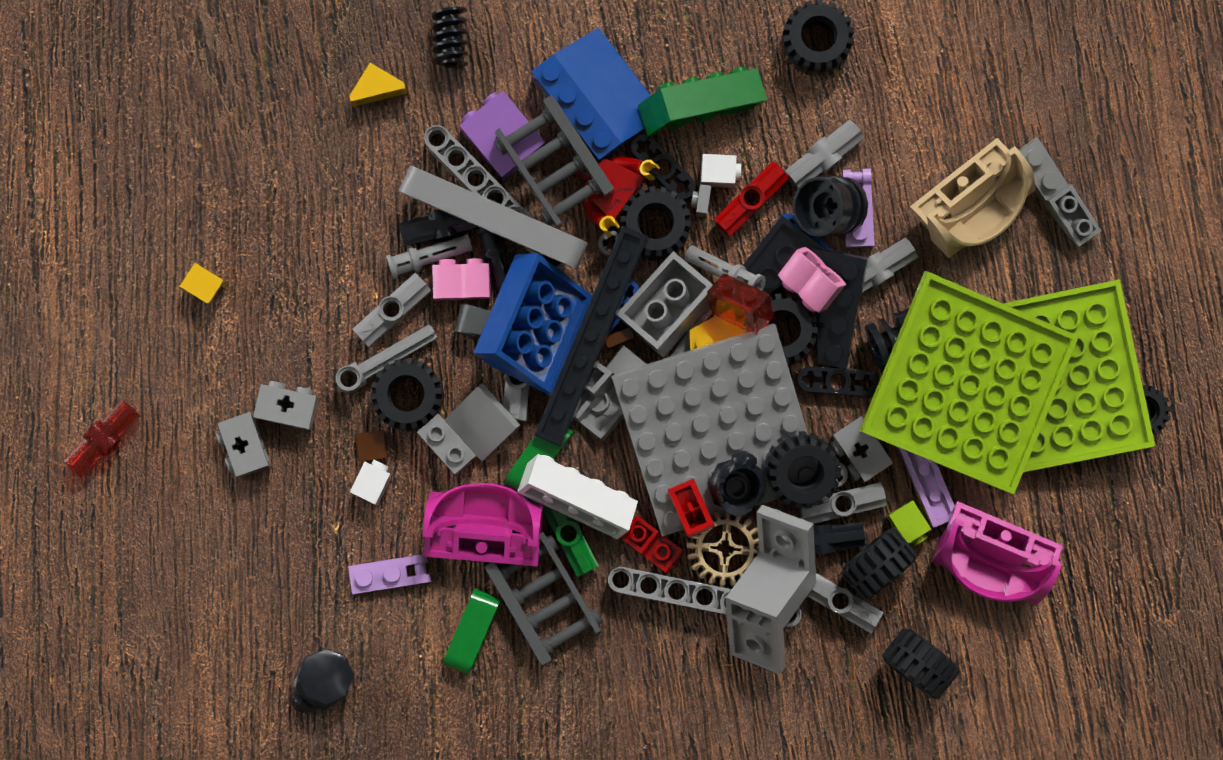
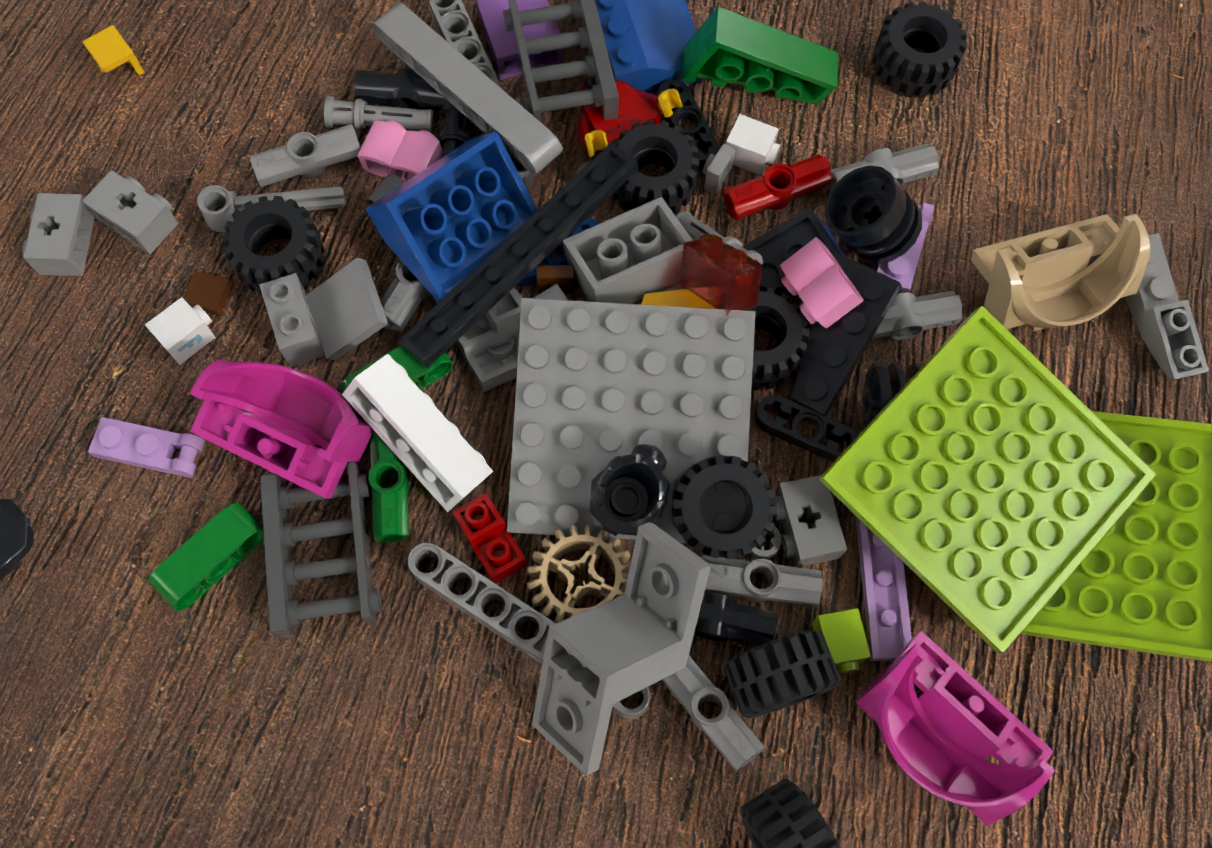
camera: 25 degrees right, 15 degrees down
(691, 508) = (555, 499): red slope -> none

